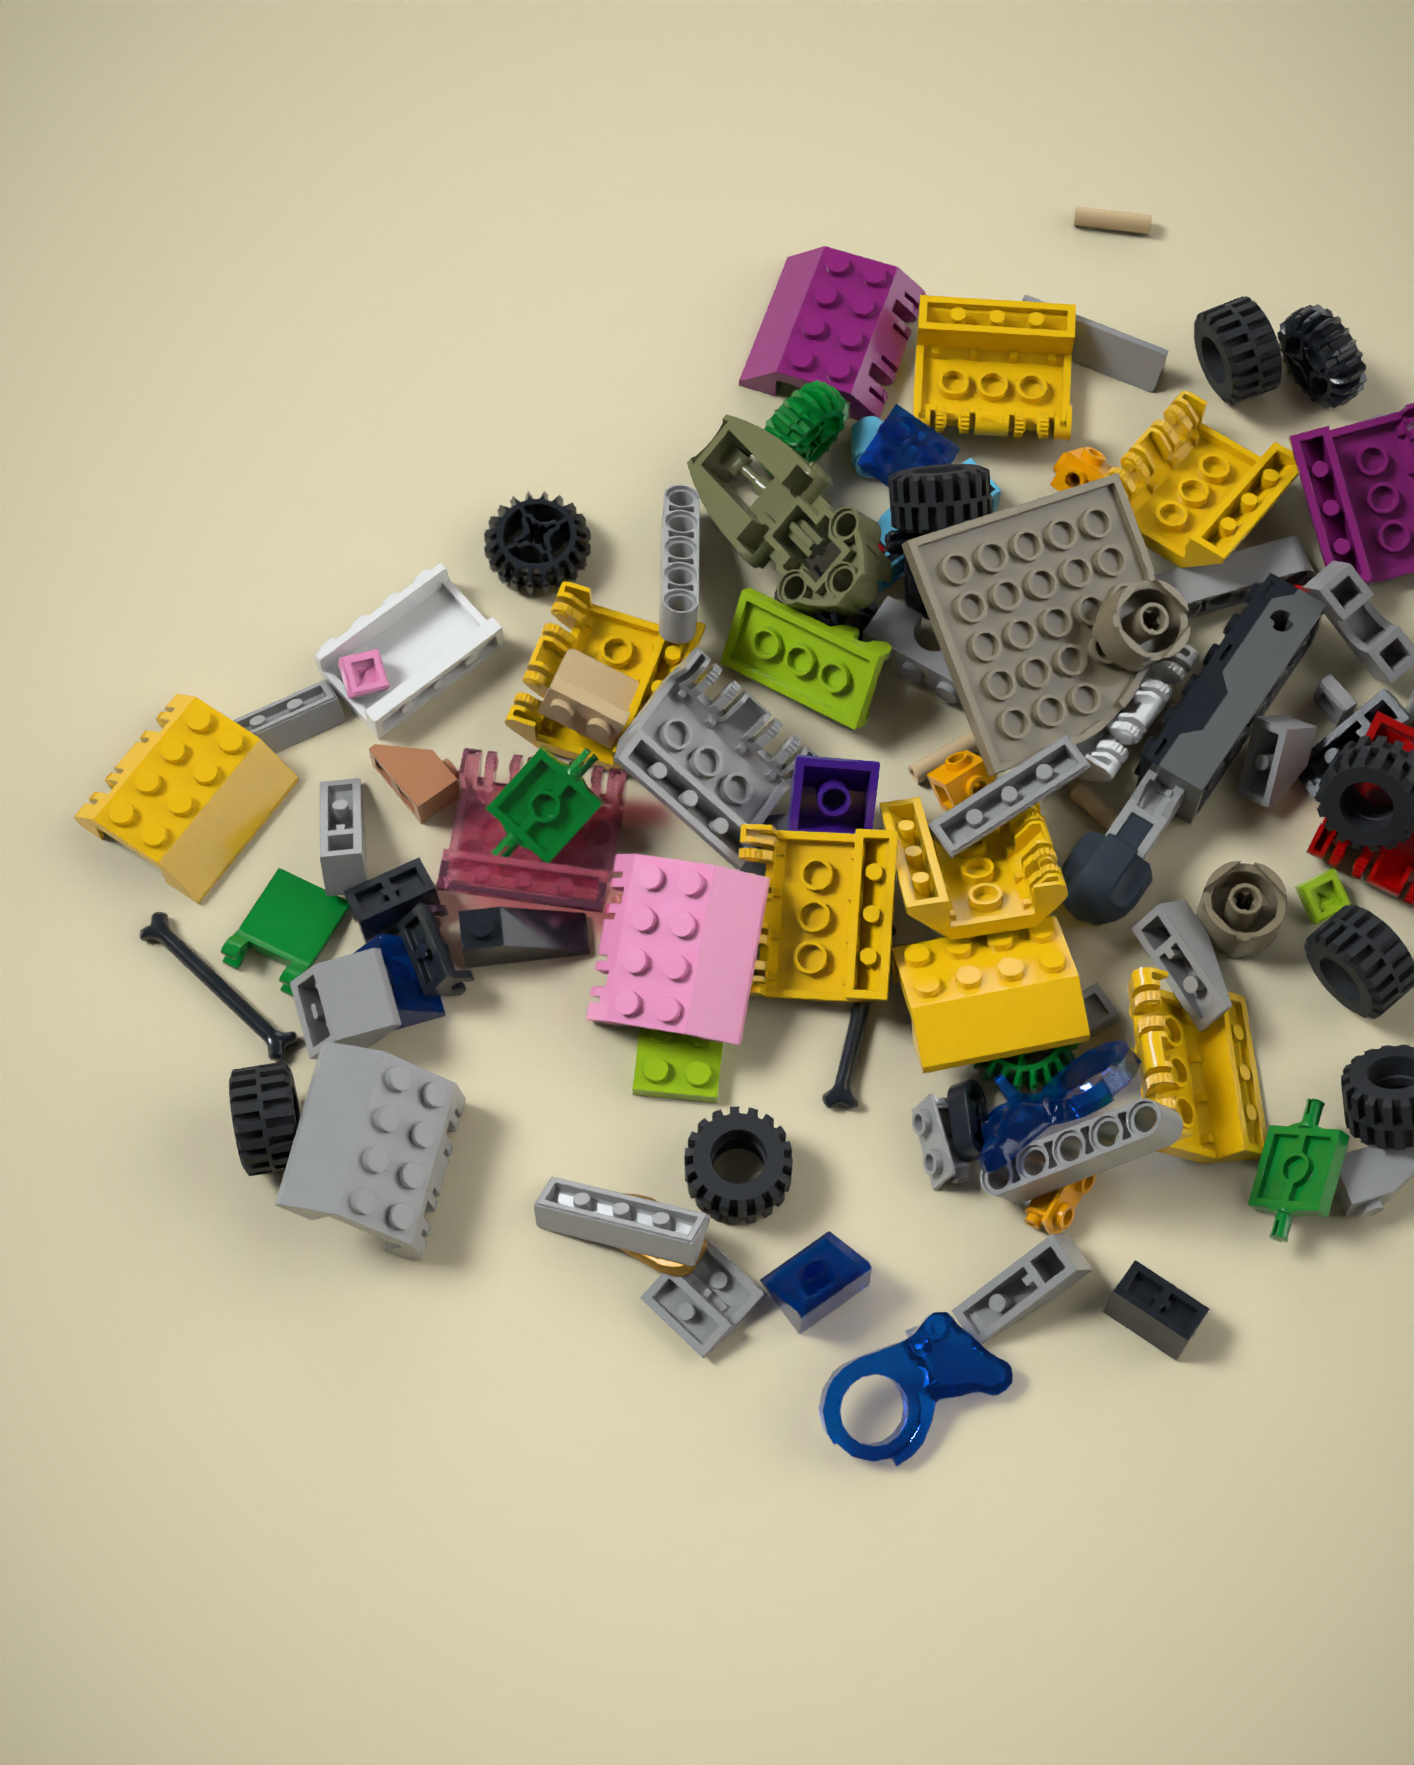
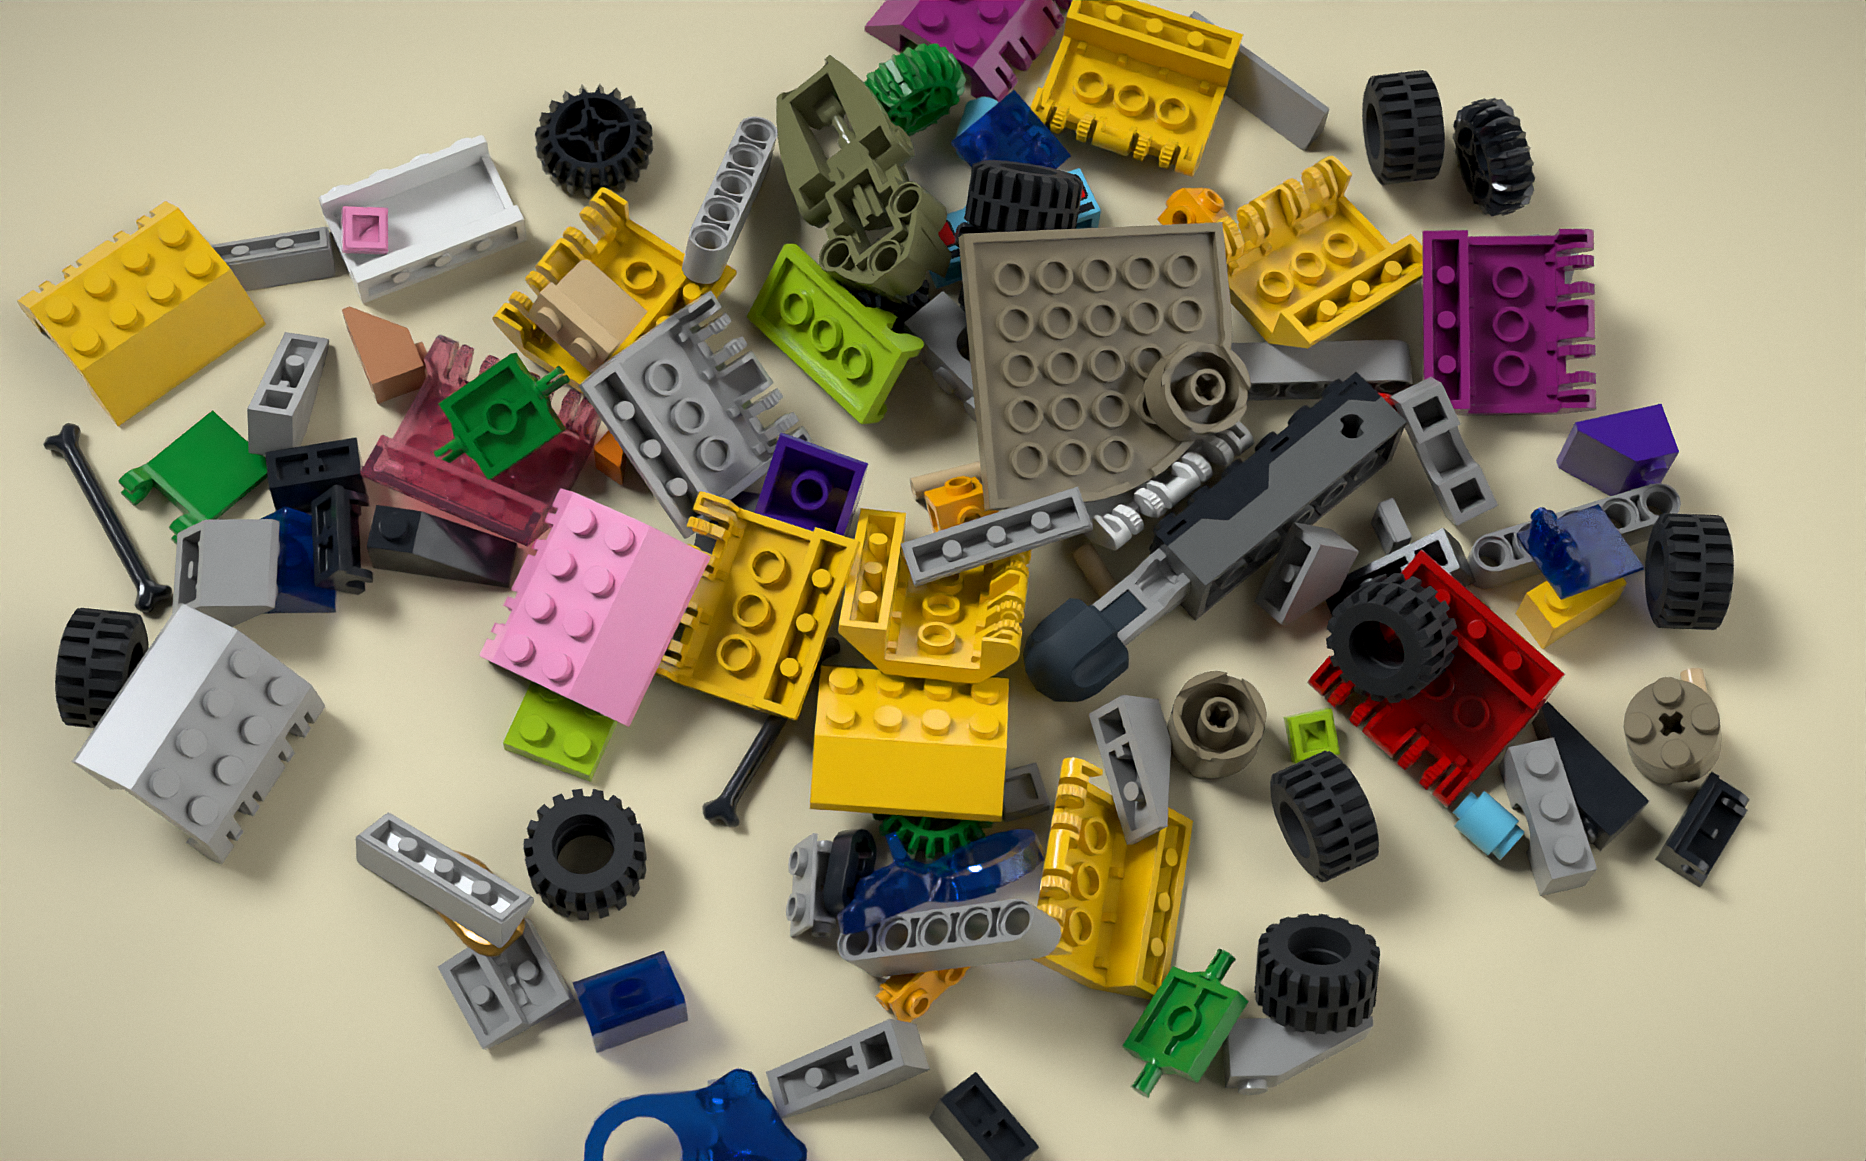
camera: 10 degrees right, 0 degrees up
(644, 814) = (610, 458): none -> orange slope

